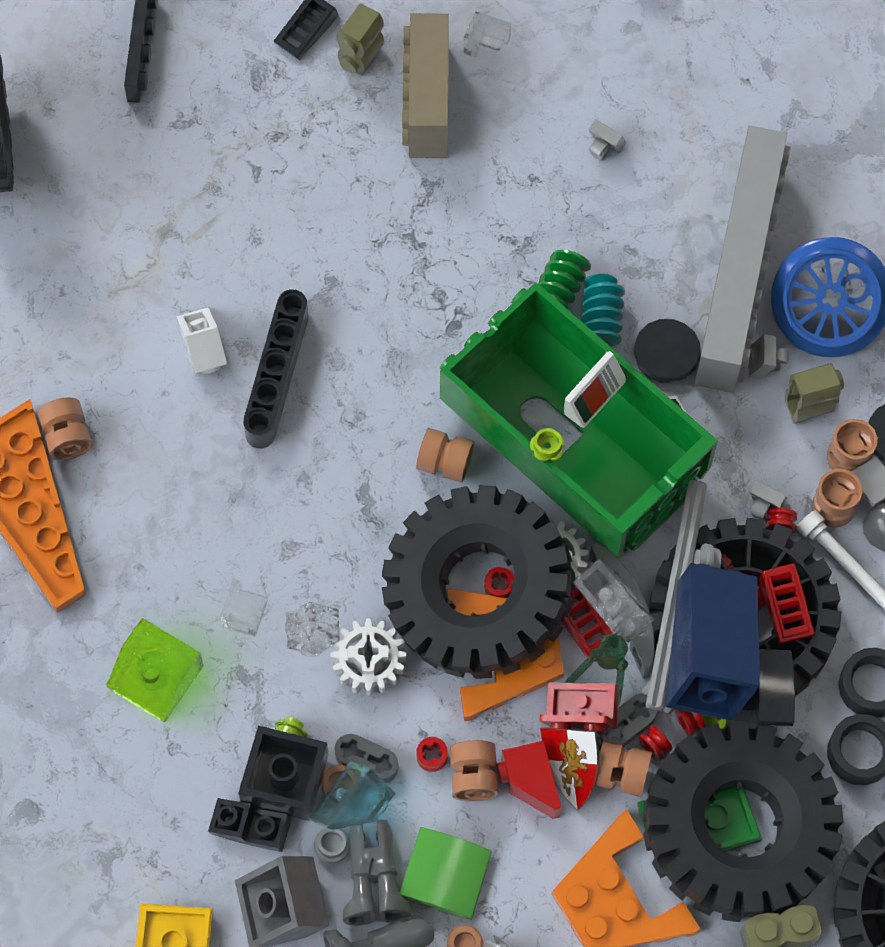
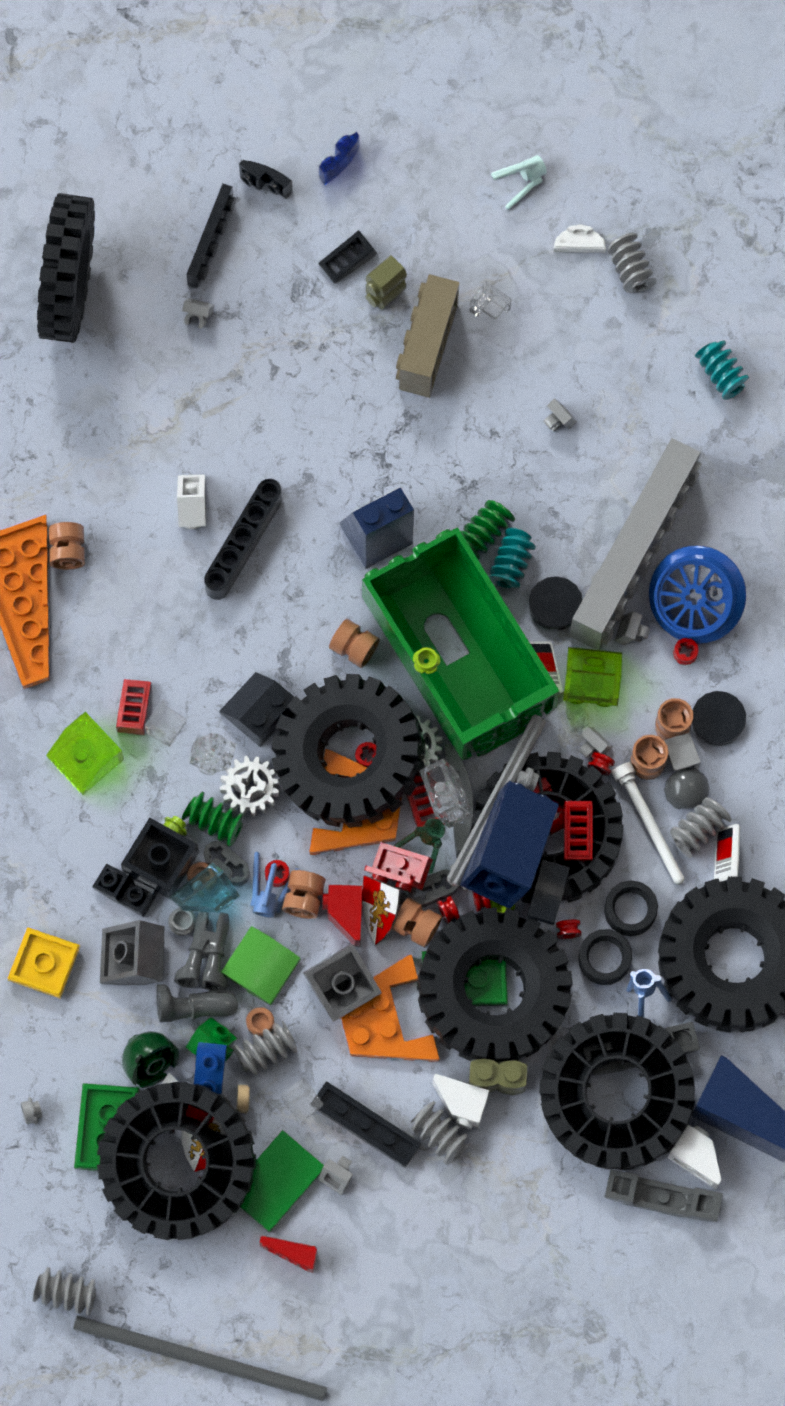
camera: 15 degrees right, 5 degrees up
(147, 123) = (199, 309): none -> light grey tile
(205, 623) = (133, 727): none -> red slope
(336, 706) = (214, 818): none -> green piece
(351, 560) = (258, 707): none -> black slope
(429, 794) = (266, 902): none -> medium blue plant
(438, 310) = (380, 527): none -> dark blue slope
(554, 866) = (342, 982): none -> flat silver slope
(594, 390) = (475, 627): slope -> none
(741, 422) = (592, 677): none -> clear neon green slope
(774, 44) = (722, 369): none -> teal piece
(807, 727) = (568, 929): none -> red bush
(813, 392) = (657, 668): olive brick -> none
(837, 358) = (689, 644): none -> red bush

